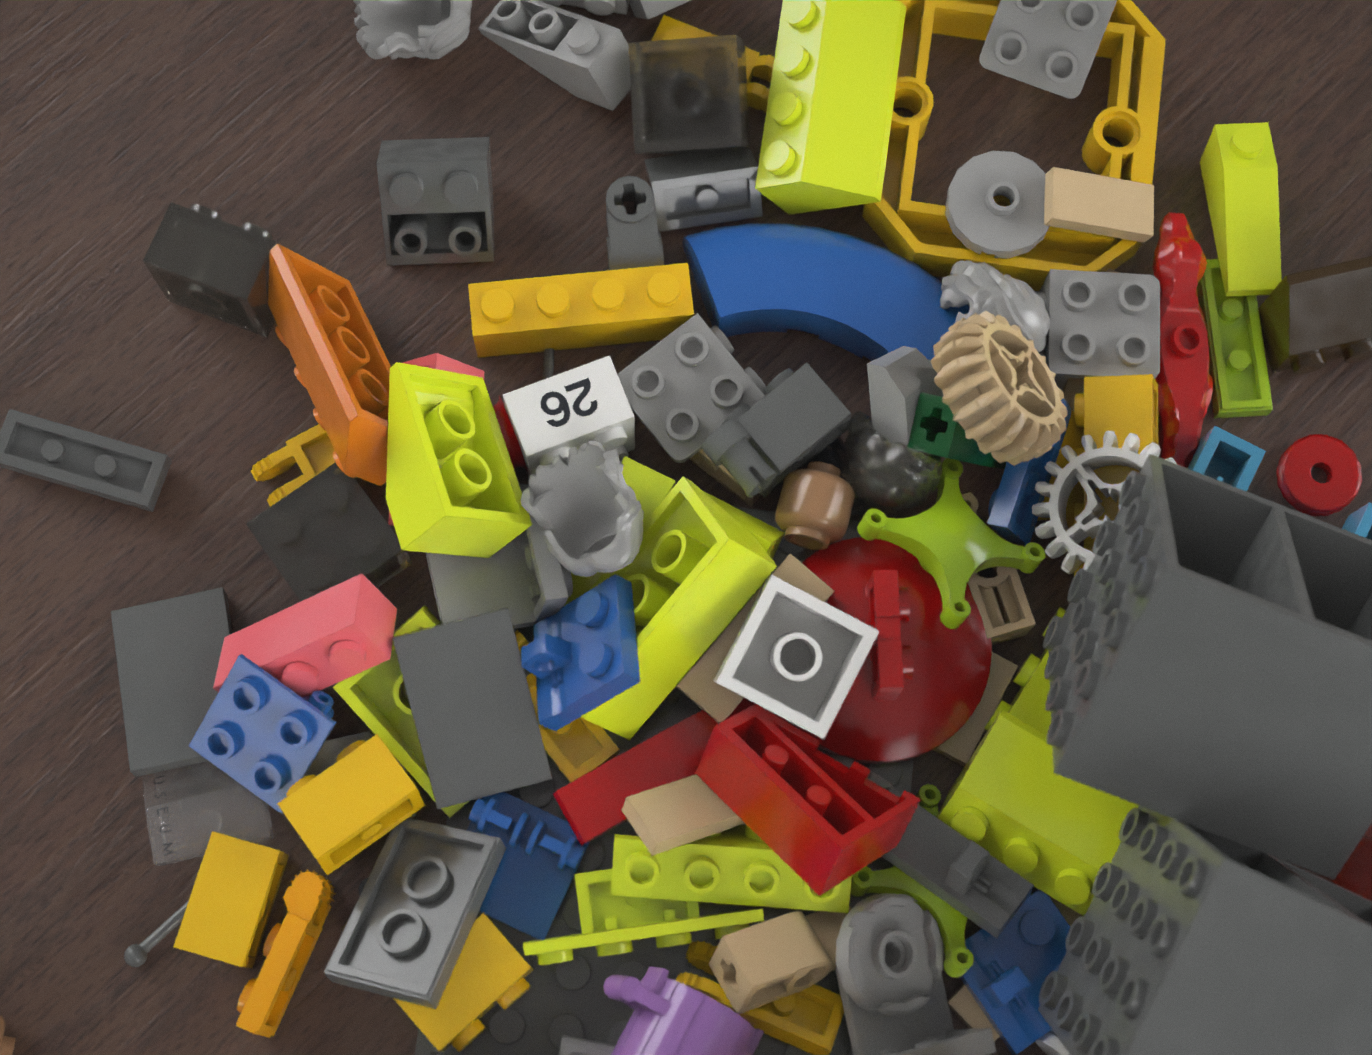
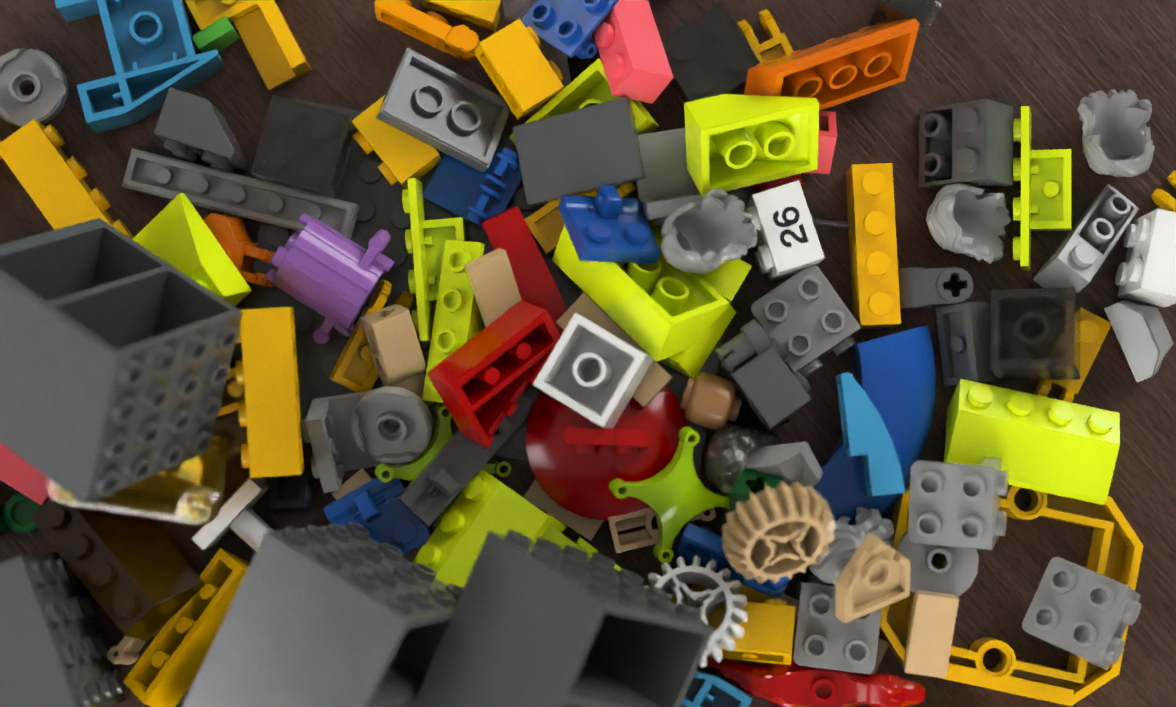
camera: 100 degrees right, 10 degrees up
(492, 100) = (1044, 189): none -> neon yellow bracket
(540, 191) = (969, 221): none -> light grey hair
(852, 291) = (868, 437): none -> dark azure slope
(928, 174) = (957, 503): none -> light grey bracket
(1045, 272) = (871, 579): none -> tan plate

